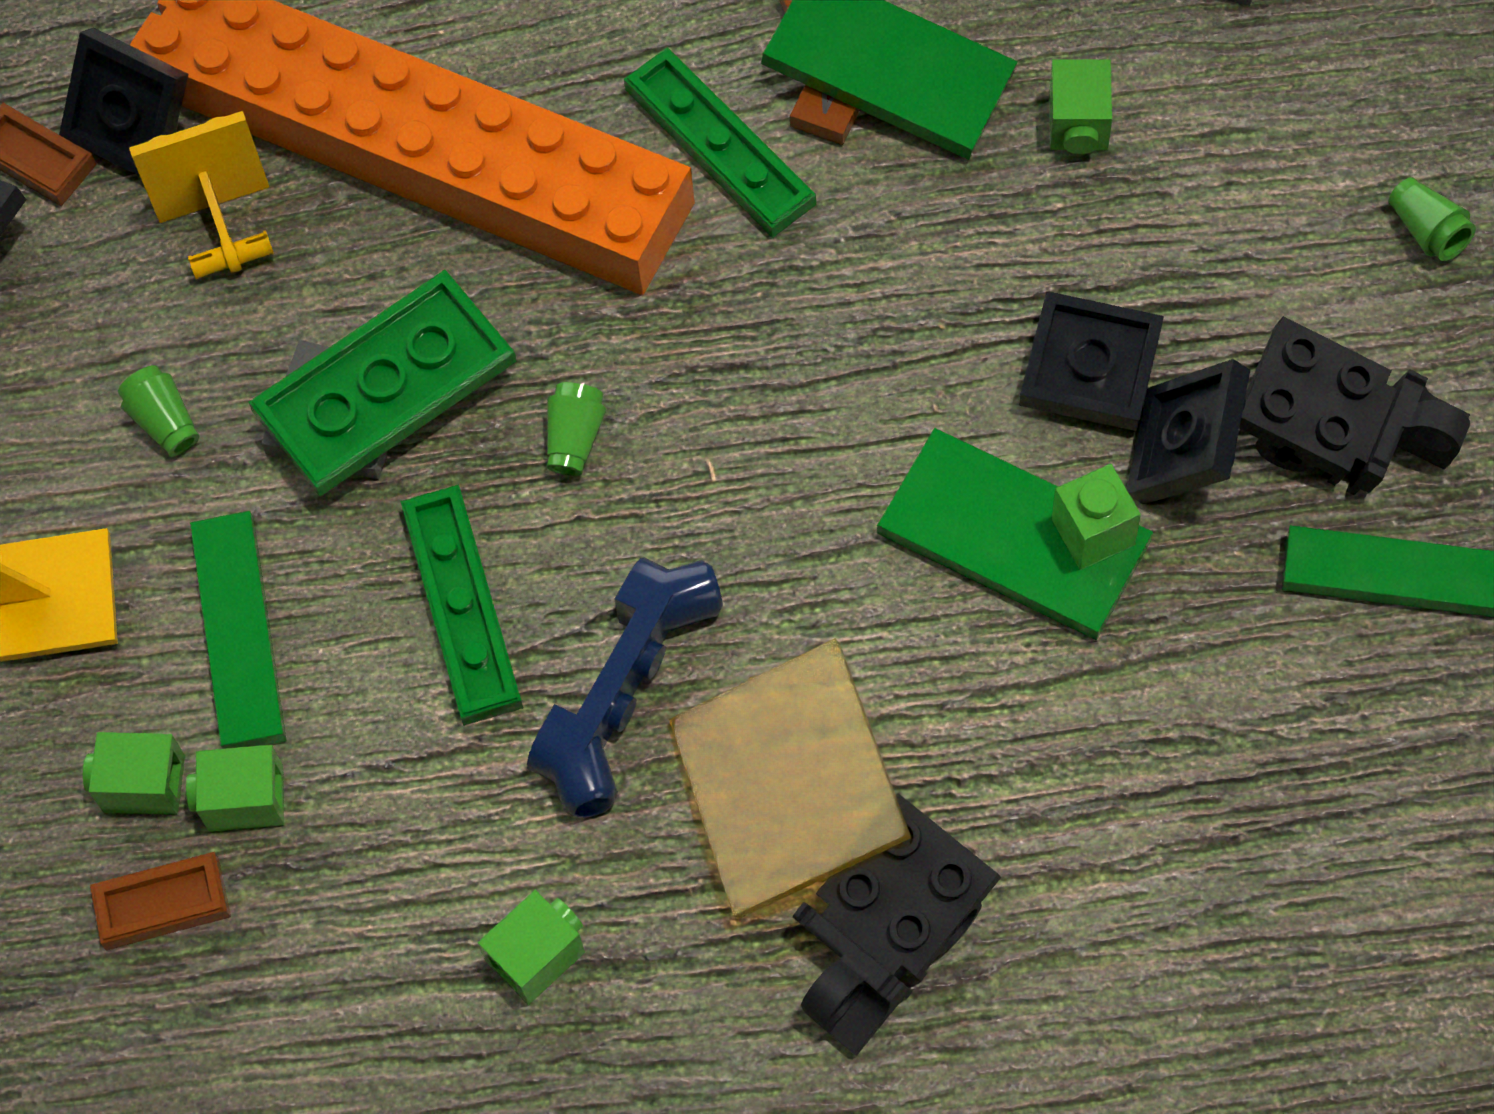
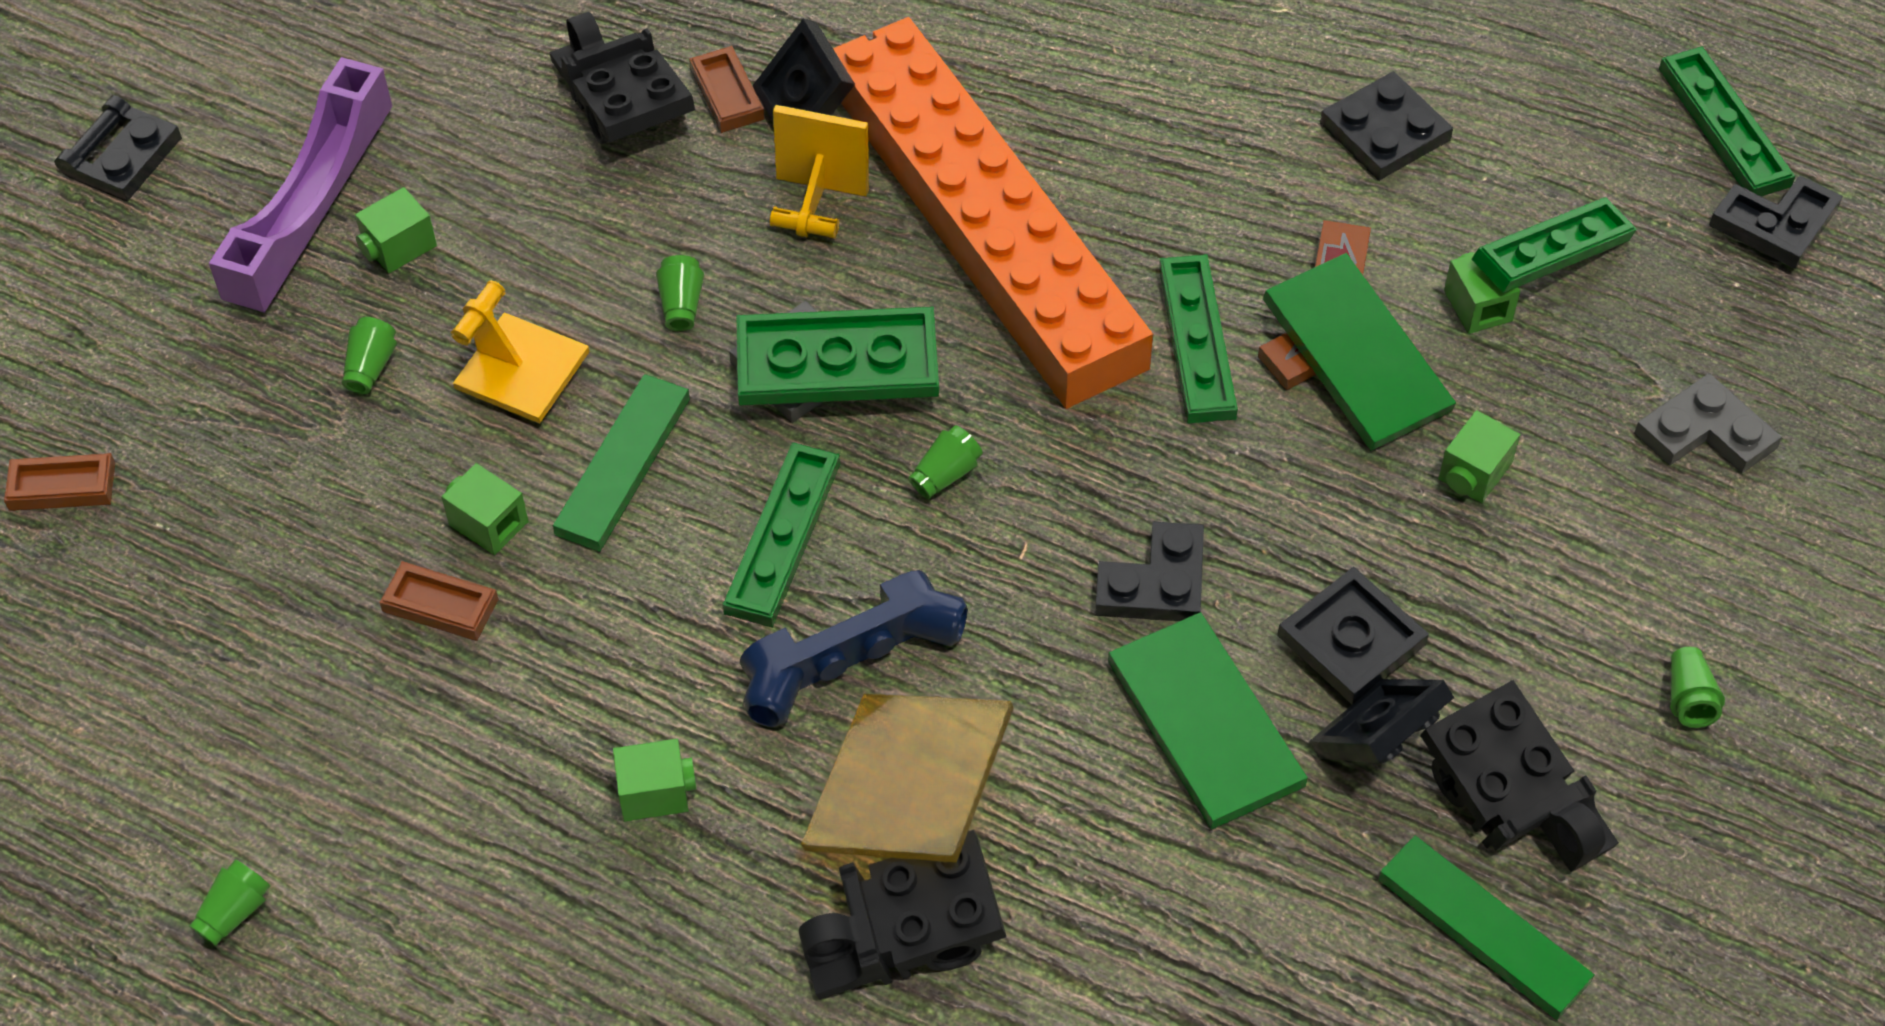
camera: 30 degrees right, 10 degrees down
(237, 788) = (542, 558): bright green brick -> none
(878, 420) = (1159, 590): none -> black plate
(1095, 516) = (1265, 734): bright green brick -> none

